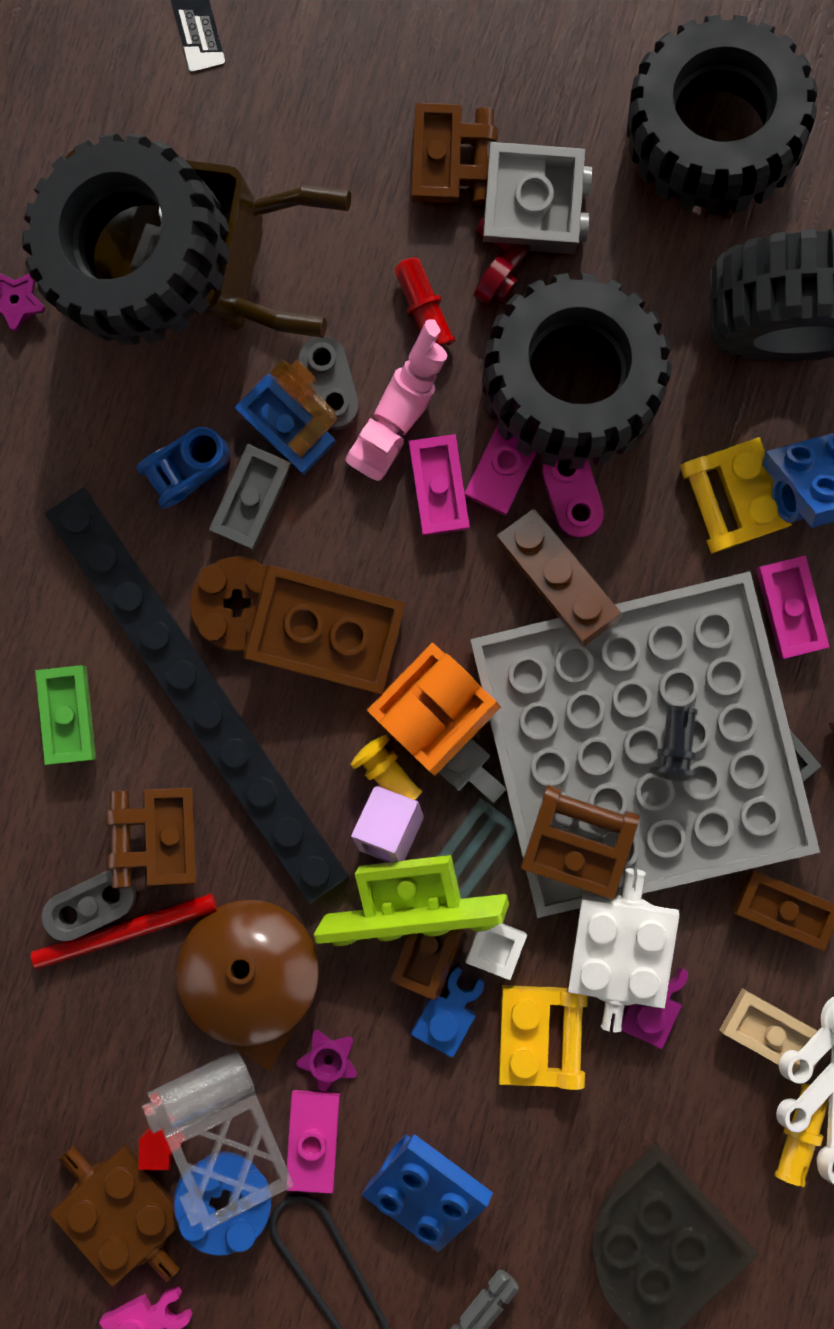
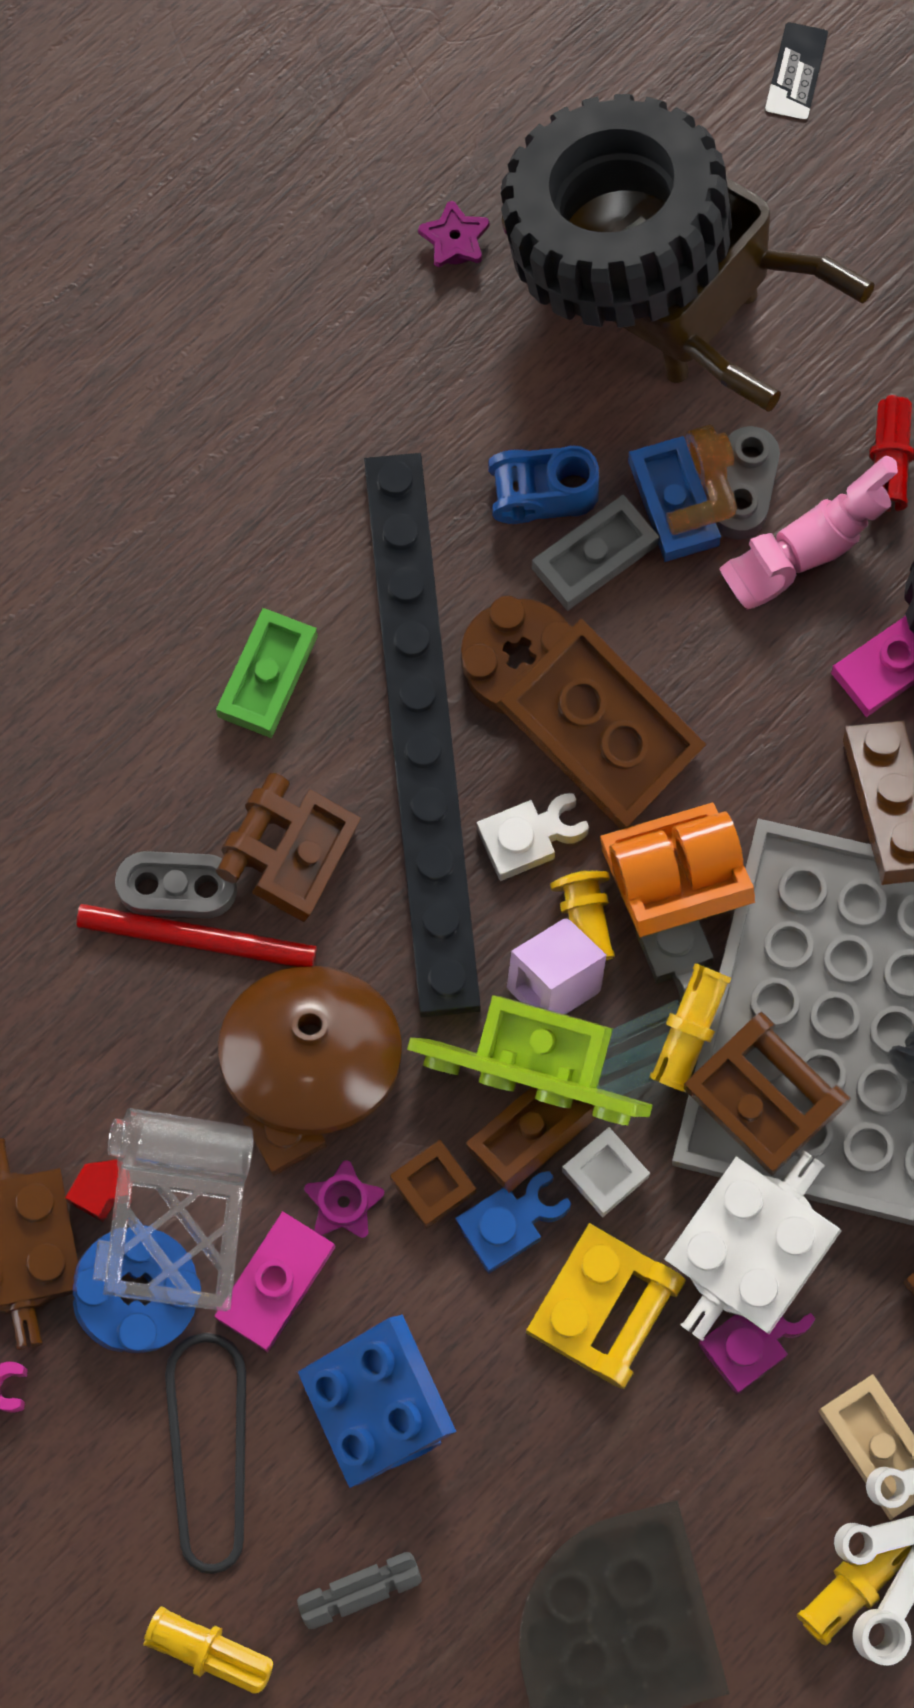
camera: 30 degrees right, 15 degrees down
(311, 737) = (523, 839): none -> white plate
(383, 1020) = (433, 1184): none -> reddish brown plate
(439, 485) = (809, 643): dark pink plate -> none
(503, 821) = (690, 1027): none -> yellow pin

